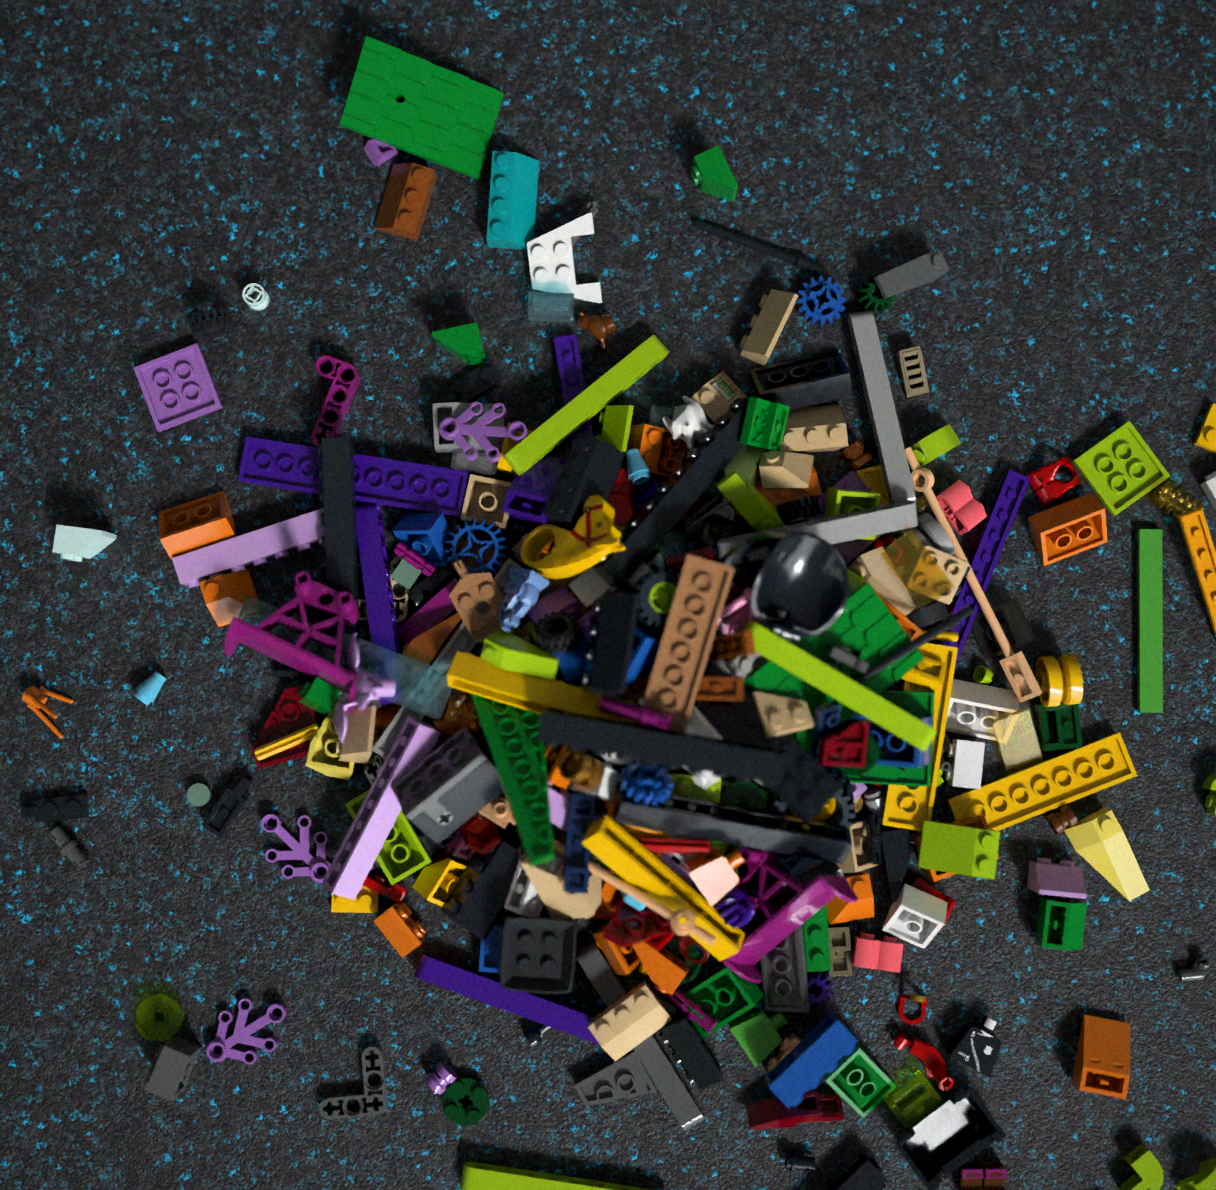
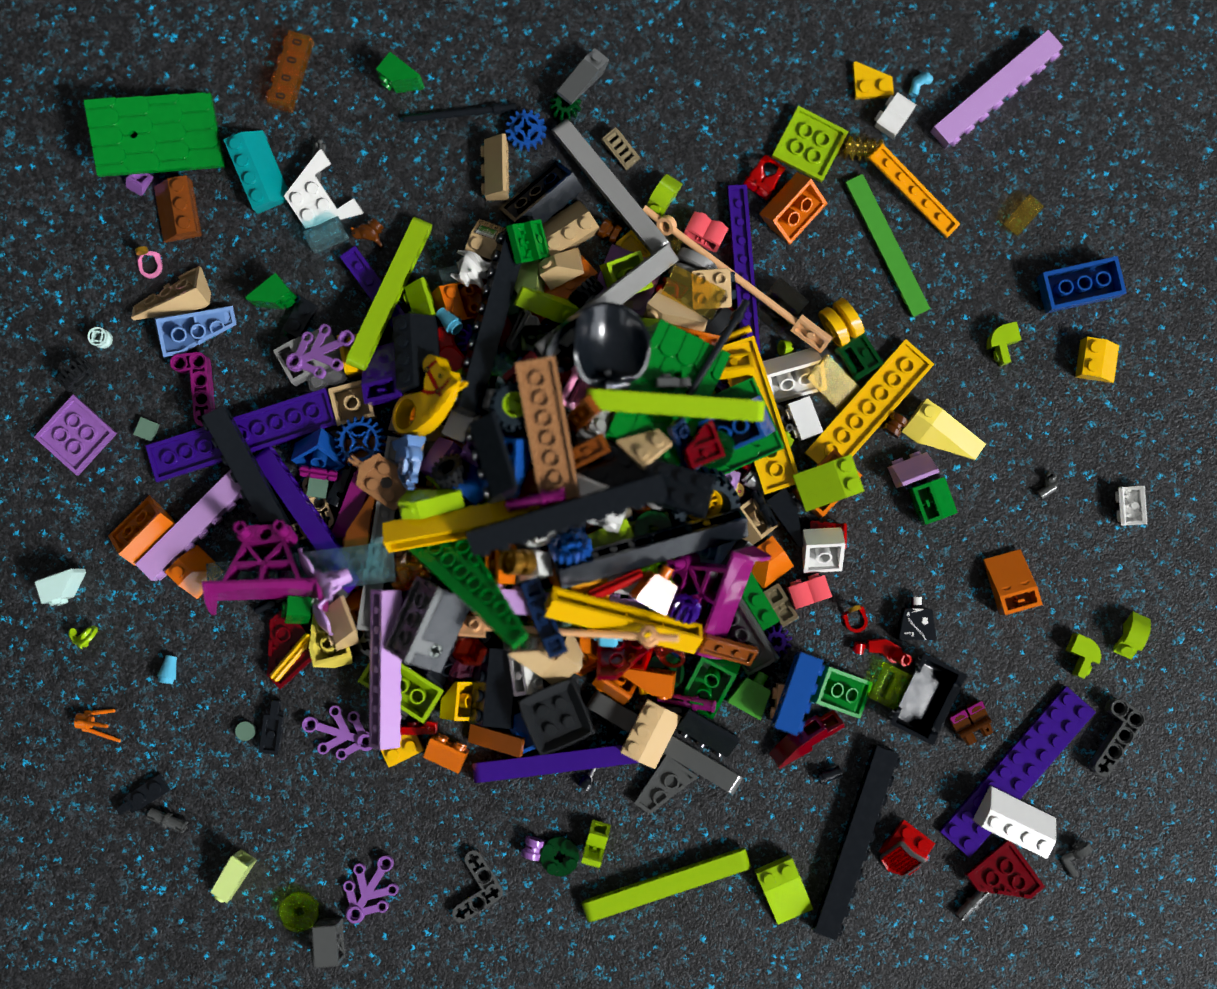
camera: 30 degrees left, 0 degrees up
(77, 610) = (84, 638): none -> lime piece
(108, 944) = (233, 876): none -> yellowish green slope
(256, 419) = (146, 429): none -> sand green tile
(347, 227) = (143, 250): none -> bright pink piece
(351, 334) = (186, 330): none -> medium blue wedge
(367, 297) = (182, 297): none -> tan wedge
(461, 943) = (496, 740): none -> dark orange tile
(511, 1108) = (595, 843): none -> lime brick
(600, 112) = (290, 71): none -> clear orange brick
(759, 974) = (728, 649): none -> dark orange tile

